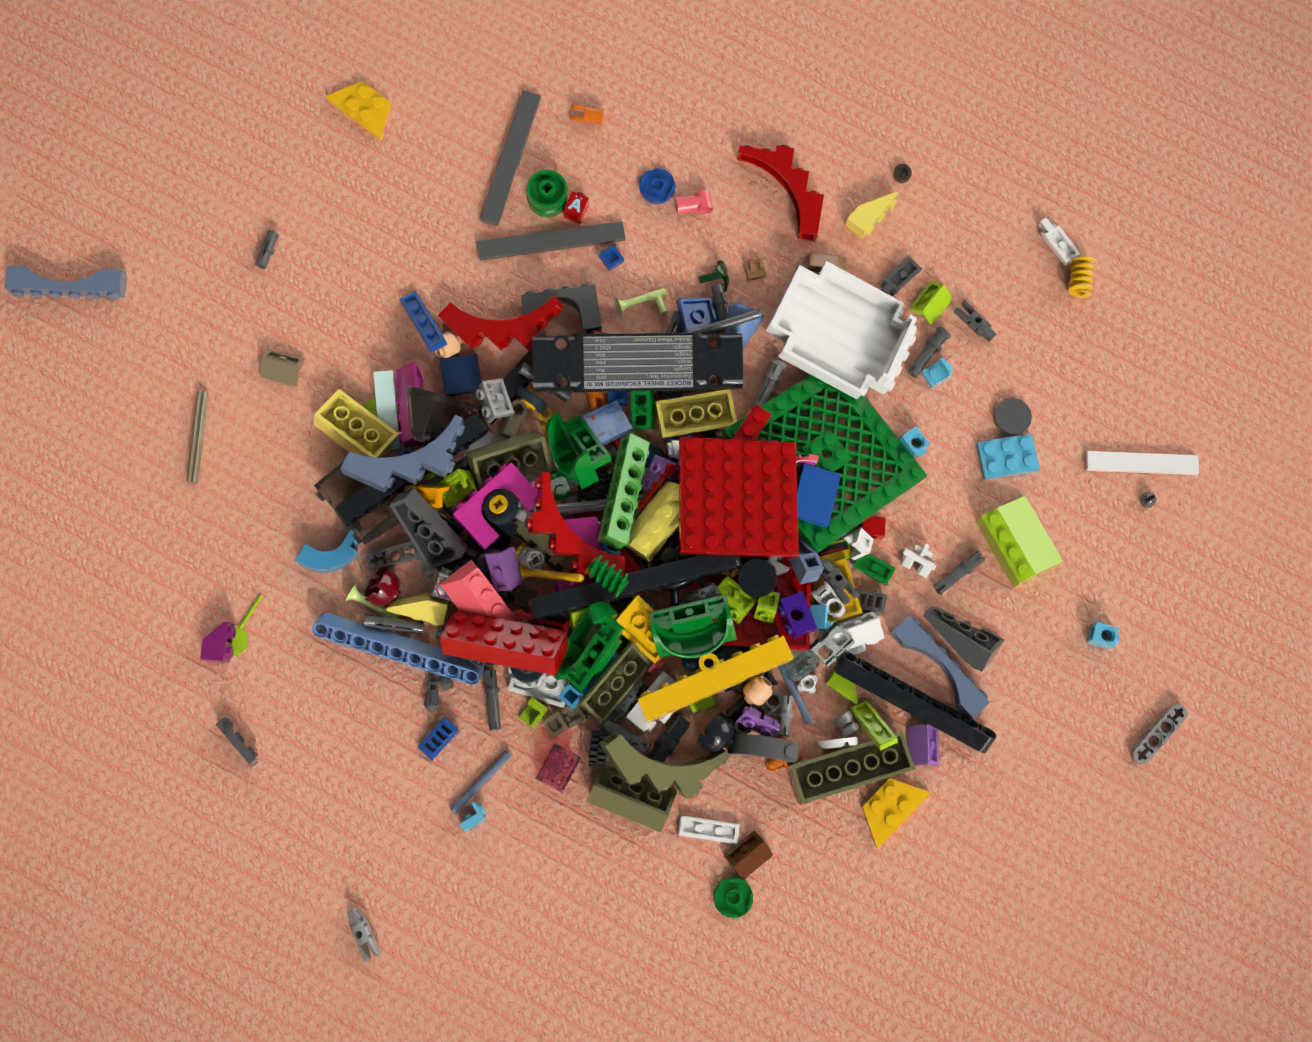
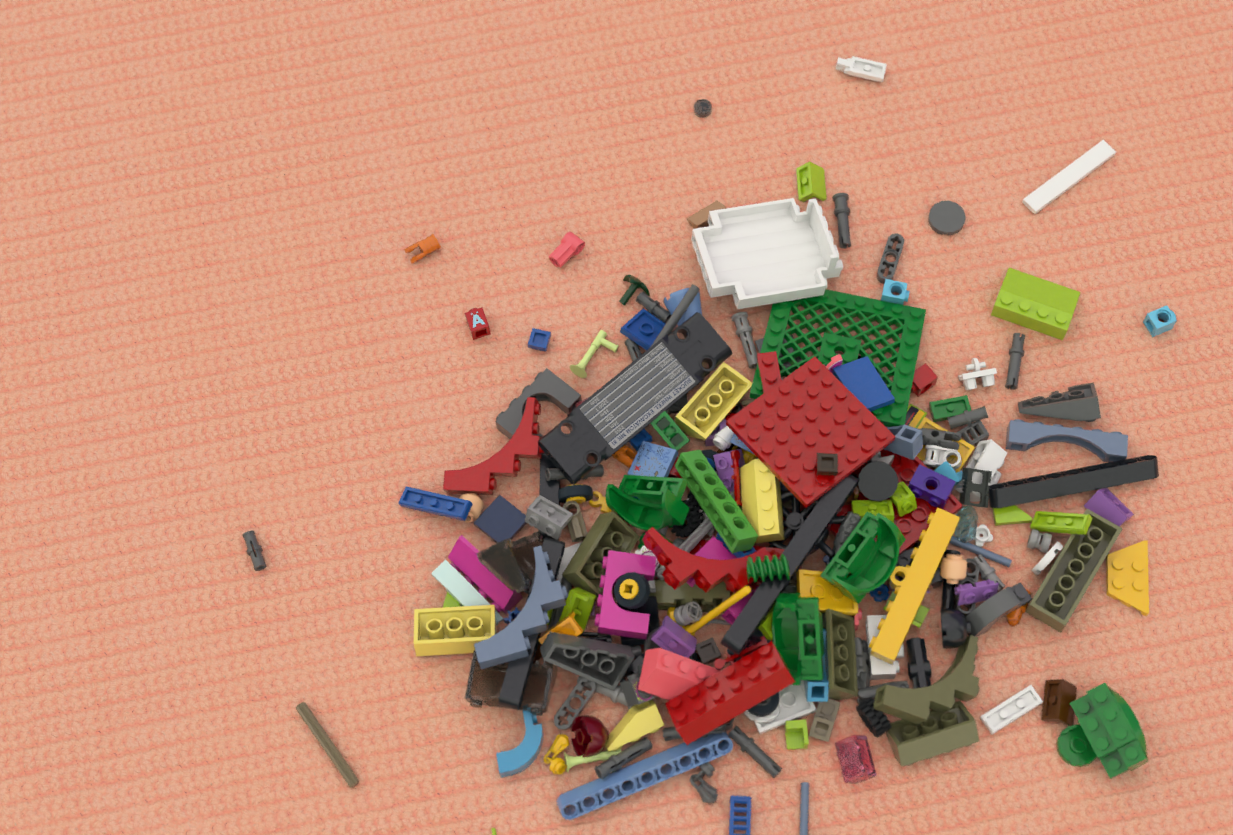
camera: 25 degrees left, 10 degrees down
(105, 283) = (71, 736): sand blue arch -> none
(280, 367) = (348, 633): dark tan panel -> none
(343, 589) = (557, 764): none -> yellow piece
(363, 106) = (235, 379): yellow wing -> none
(510, 158) = (391, 328): dark grey tile -> none
(547, 193) = (445, 330): green wheel -> none
(551, 241) = (479, 365): dark grey tile -> none
(657, 186) = (525, 260): blue tile -> none
(722, 533) = (827, 464): none -> dark brown plate
(755, 269) = (656, 262): medium nougat tile -> none
(763, 907) = (1111, 730): none -> green piece
(779, 165) = (629, 174): red arch -> none
(860, 542) = (924, 397): white panel -> none
(866, 215) = (705, 156): light yellow slope -> none
(879, 585) = (967, 417): none -> dark grey pin
(900, 277) = (771, 182): dark grey hinge -> none
(937, 372) = (863, 229): medium azure bracket -> none
(952, 410) = (889, 251): none -> dark grey beam
(981, 328) = (856, 171): dark grey hinge -> none
(1007, 456) = (970, 249): medium azure plate -> none
(1081, 277) = (903, 79): yellow piece -> none
(1150, 503) = (1095, 203): dark grey hinge -> none

